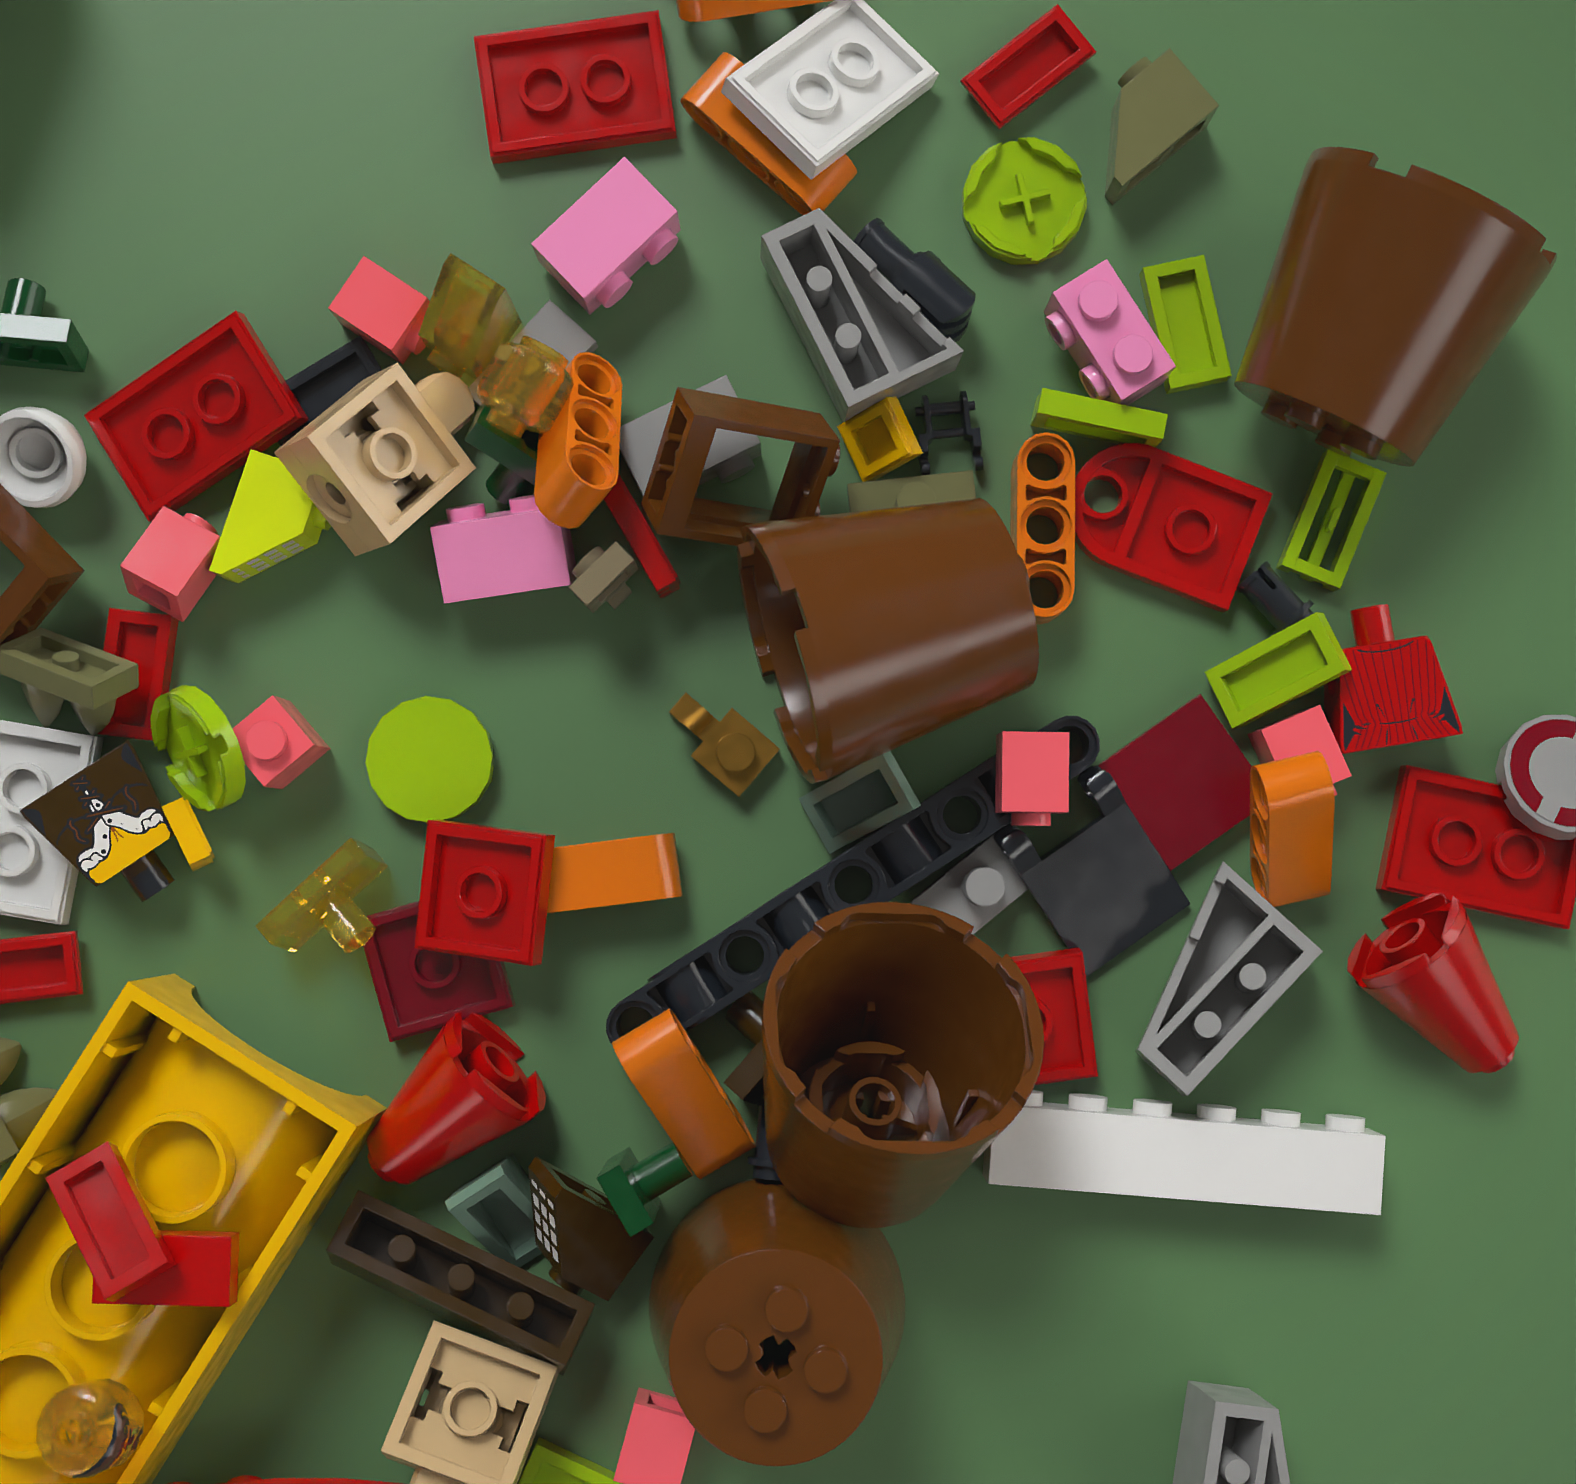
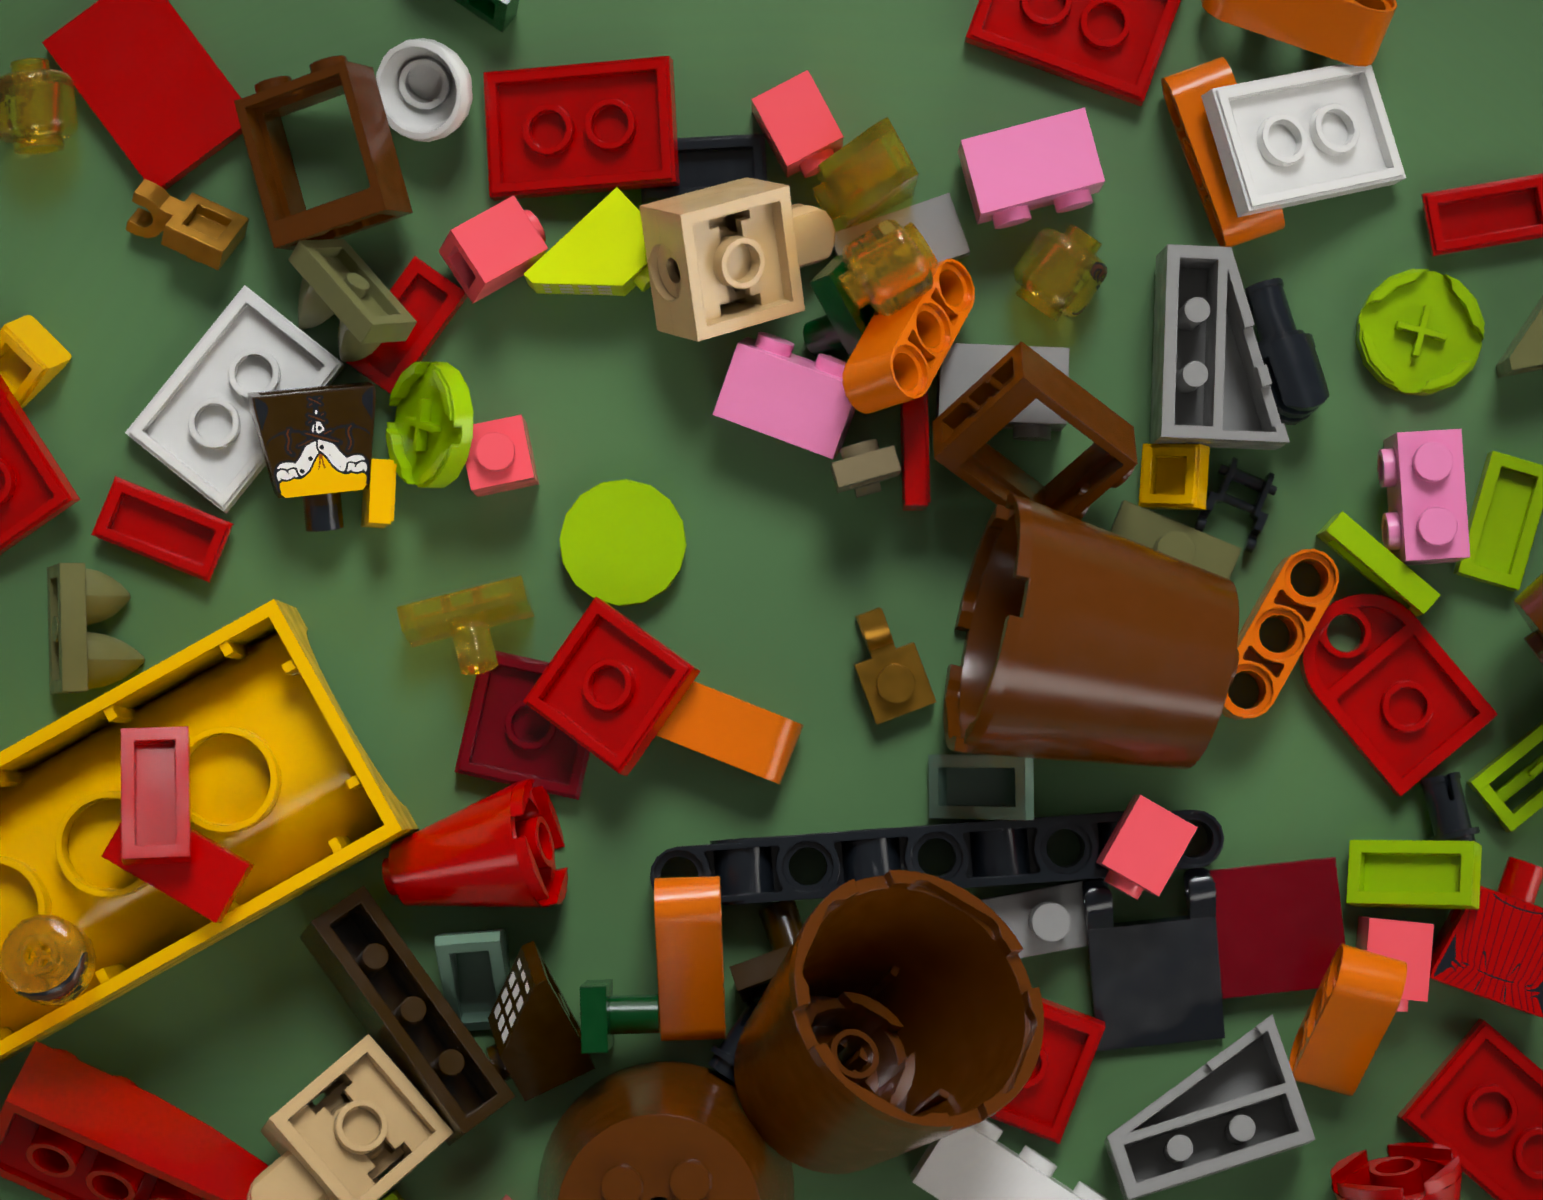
camera: 30 degrees right, 0 degrees up
(683, 315) = (1060, 272): none -> clear yellow head

